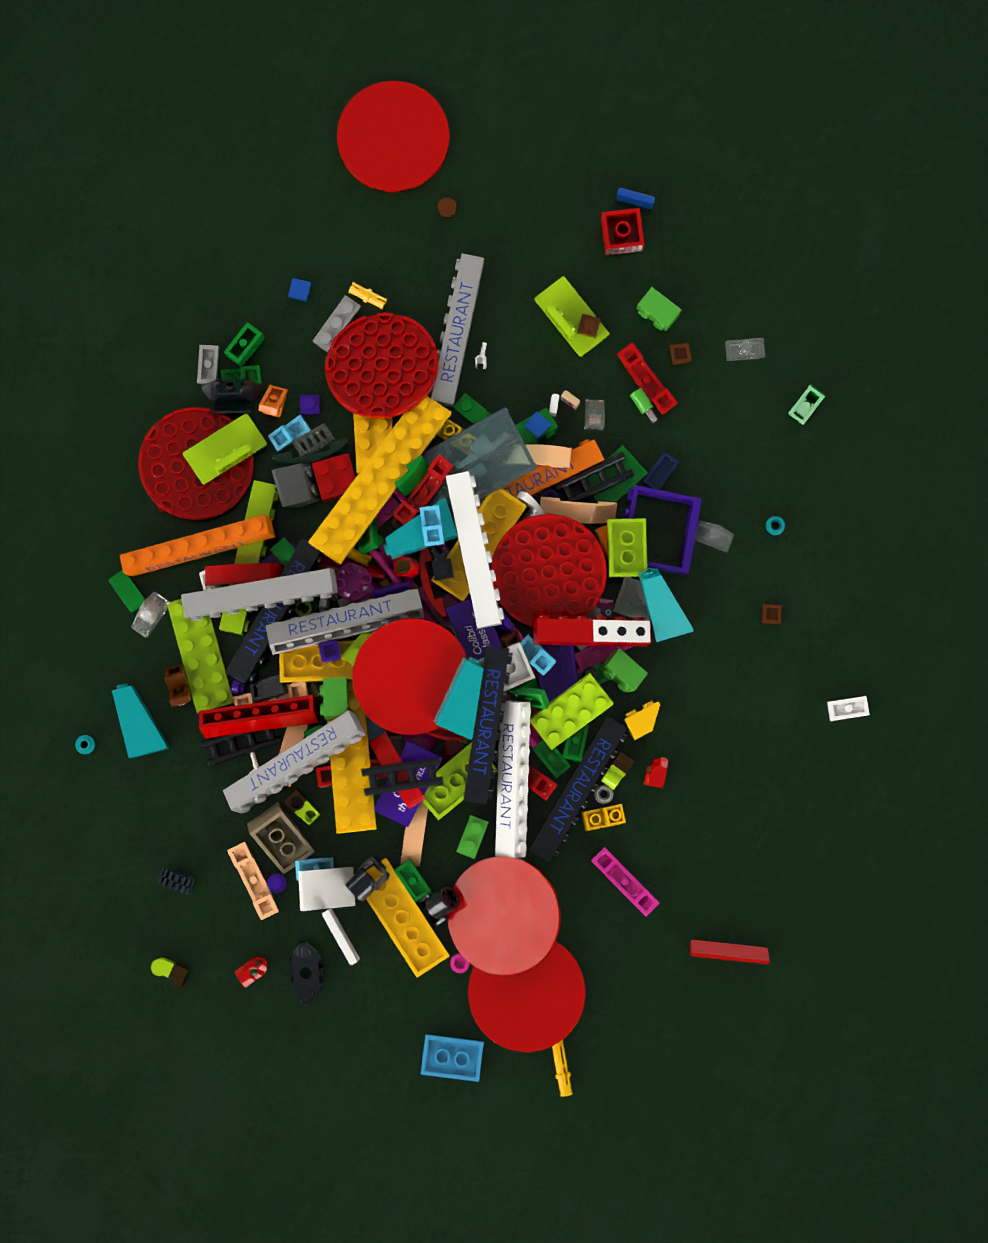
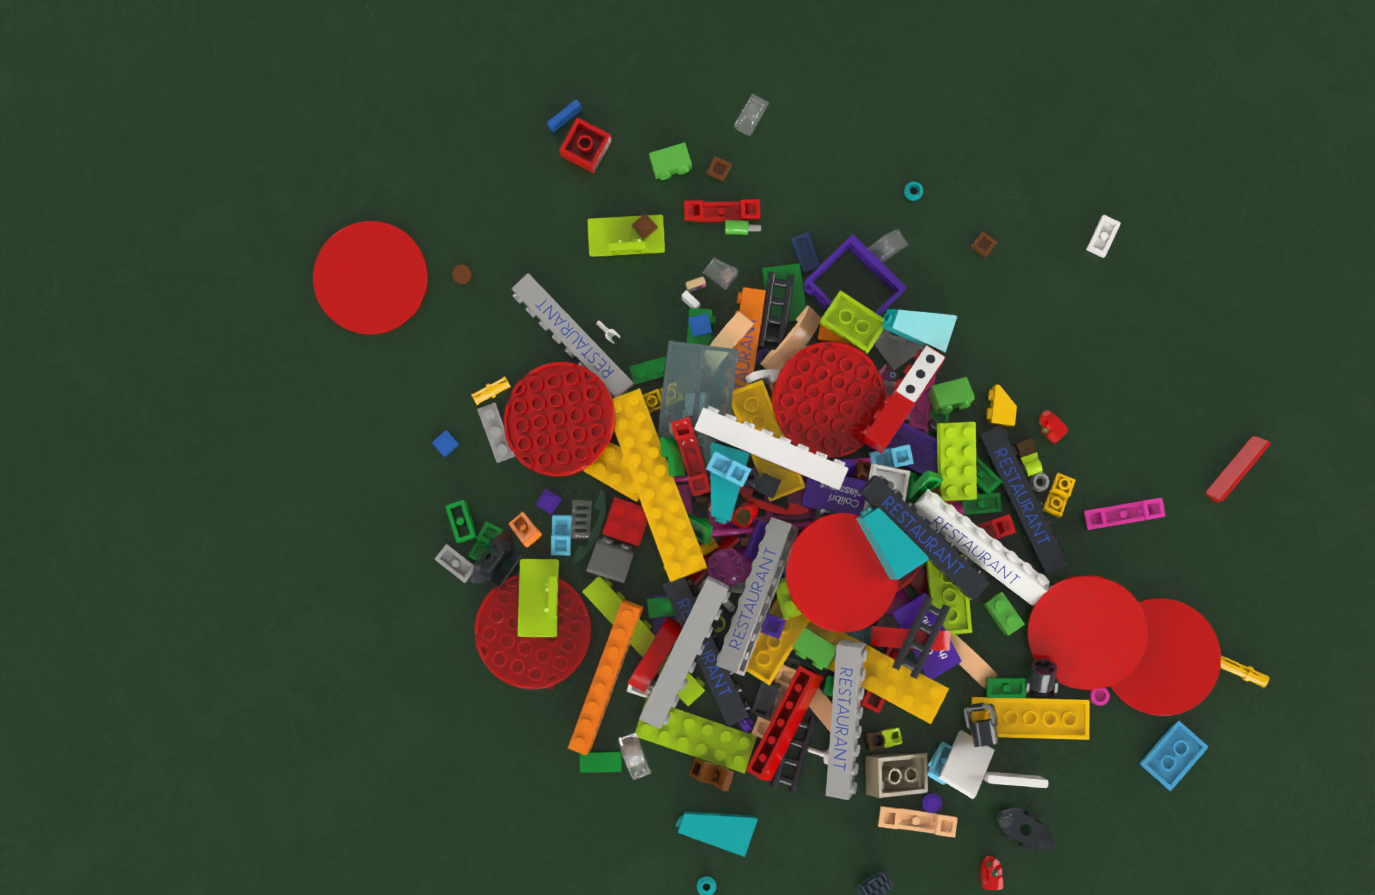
camera: 55 degrees left, 0 degrees up
(806, 404) = (833, 96): slope -> none

